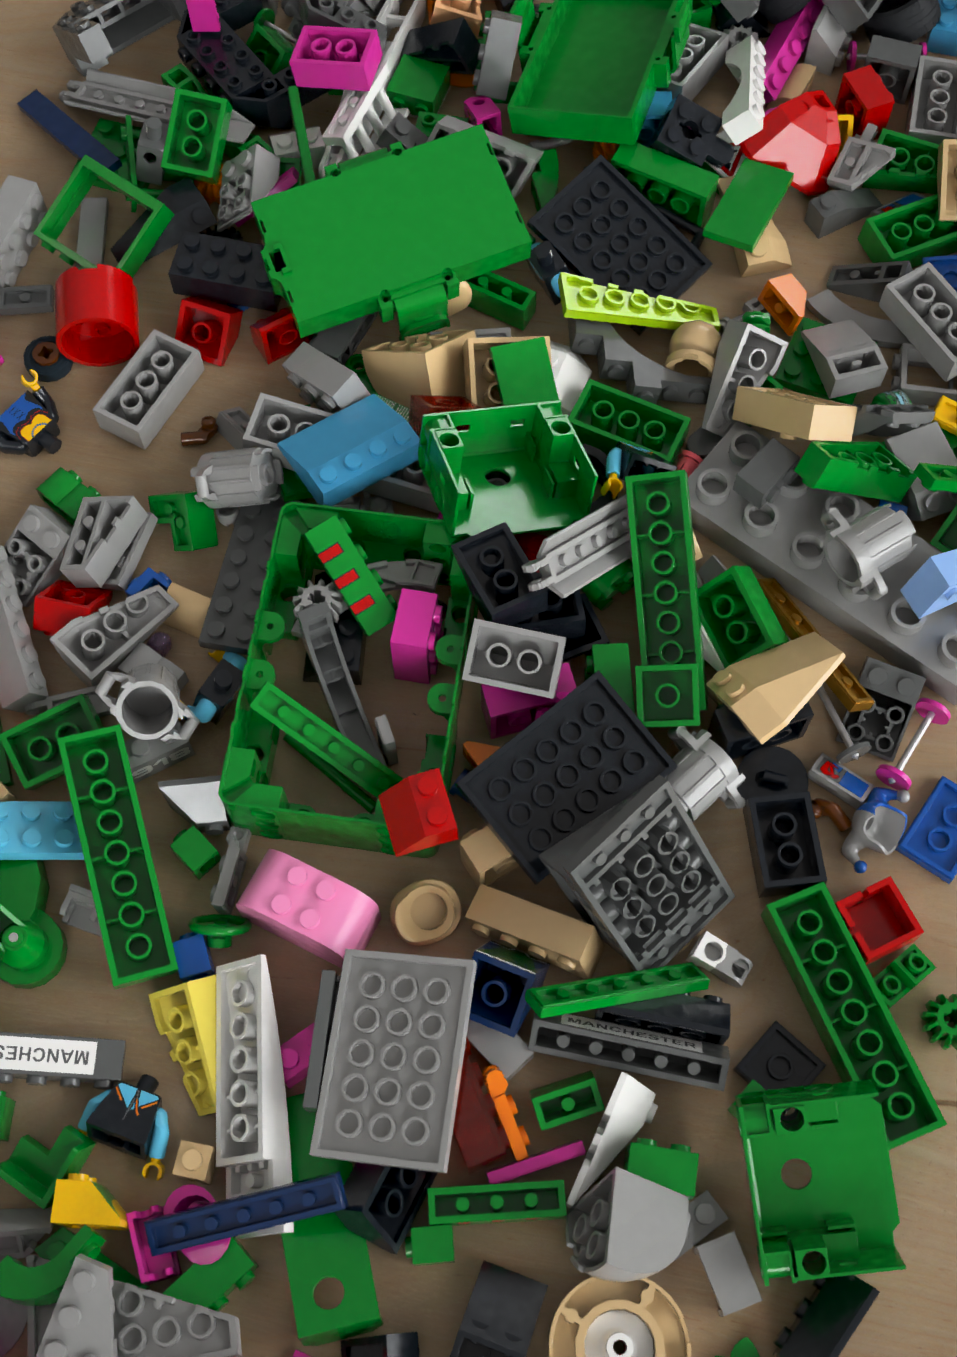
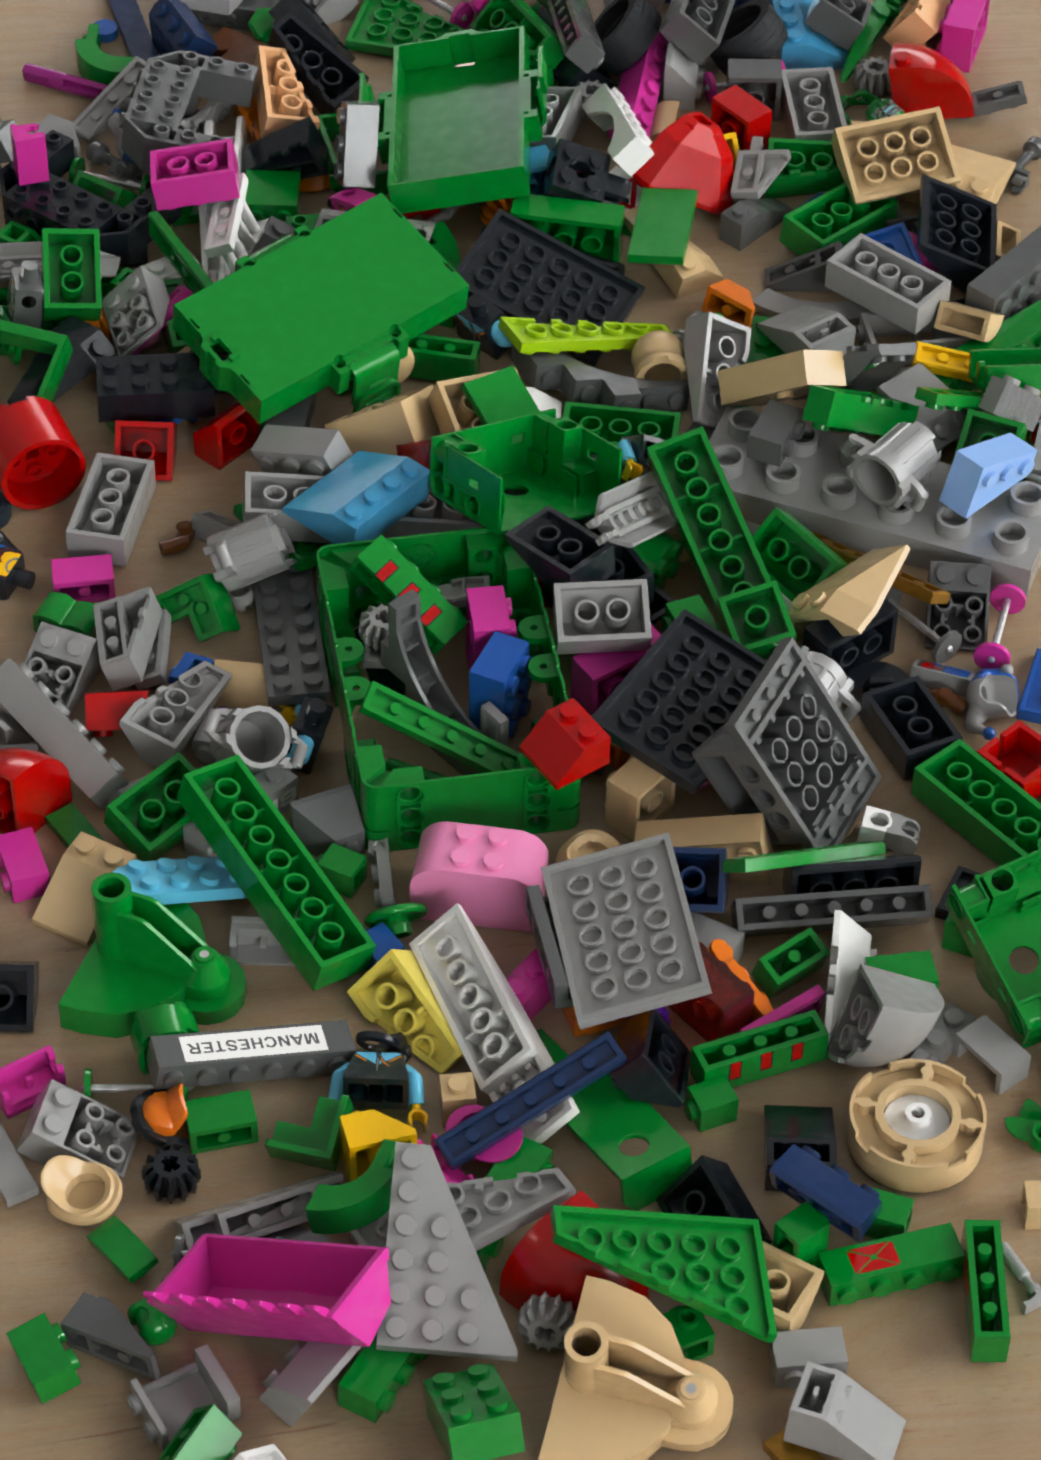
camera: 20 degrees left, 20 degrees down
(99, 457) = (84, 577): none -> dark pink brick
(160, 1074) = (391, 1043): none -> black piece
(403, 694) = (502, 679): none -> blue brick

